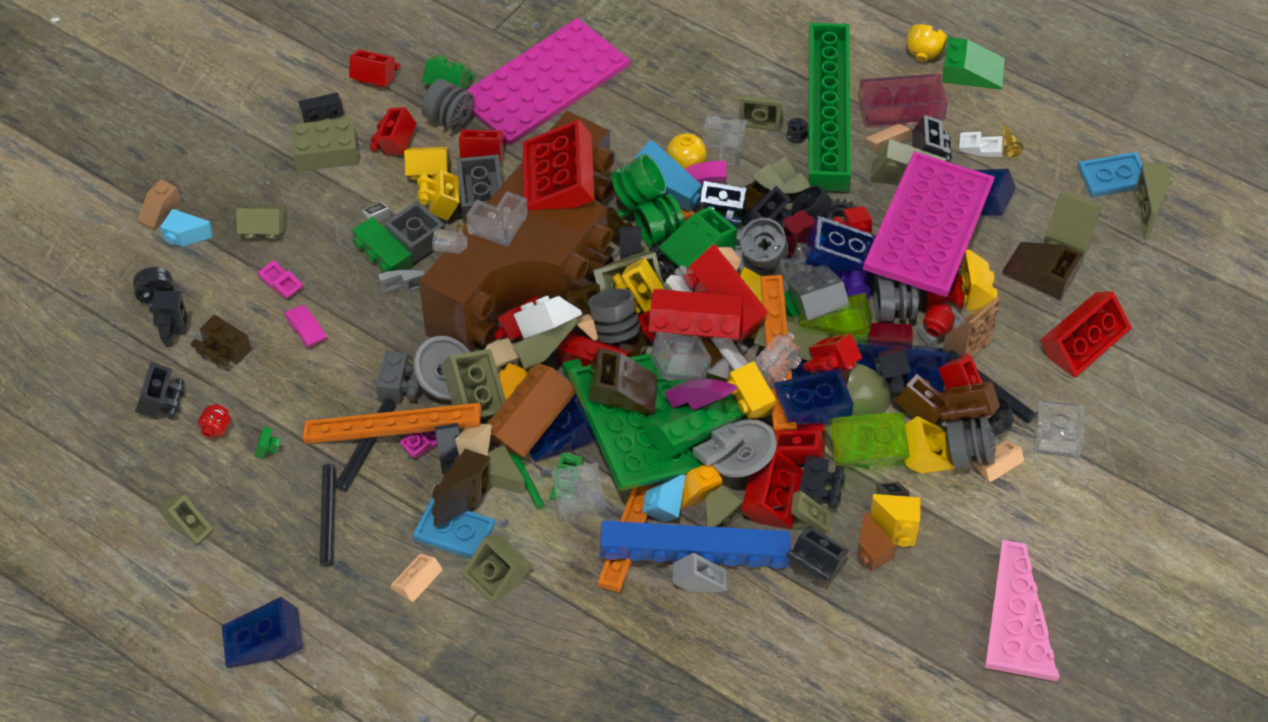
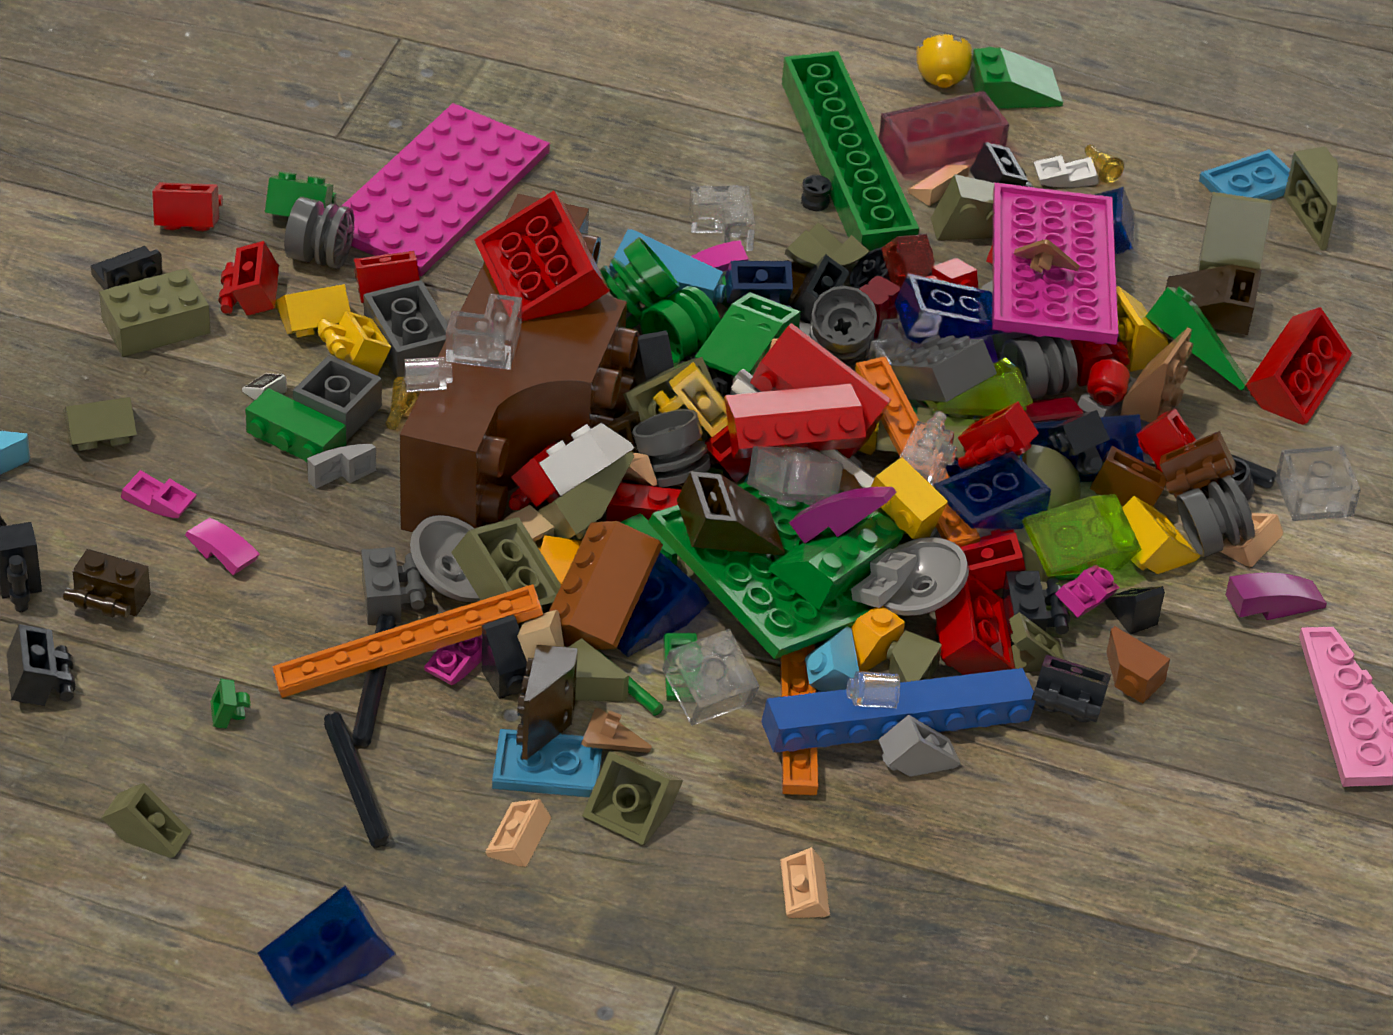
camera: 20 degrees left, 10 degrees down
(214, 421) = (139, 688): red head -> none
(501, 518) = (608, 733): none -> medium nougat piece
(587, 658) = (805, 885): none -> light nougat slope
(674, 530) = (874, 689): none -> clear brick
(687, 150) = (680, 234): yellow cylinder -> none
(761, 112) = (764, 172): olive slope -> none
(829, 201) = (908, 256): none -> clear red slope
(860, 480) = (1088, 590): none -> dark pink slope
(897, 517) = (1160, 620): yellow slope -> none
(917, 221) = (1044, 255): none -> medium nougat piece
(994, 509) = (1273, 595): none -> magenta slope
(1013, 290) = (1176, 313): none -> green wedge

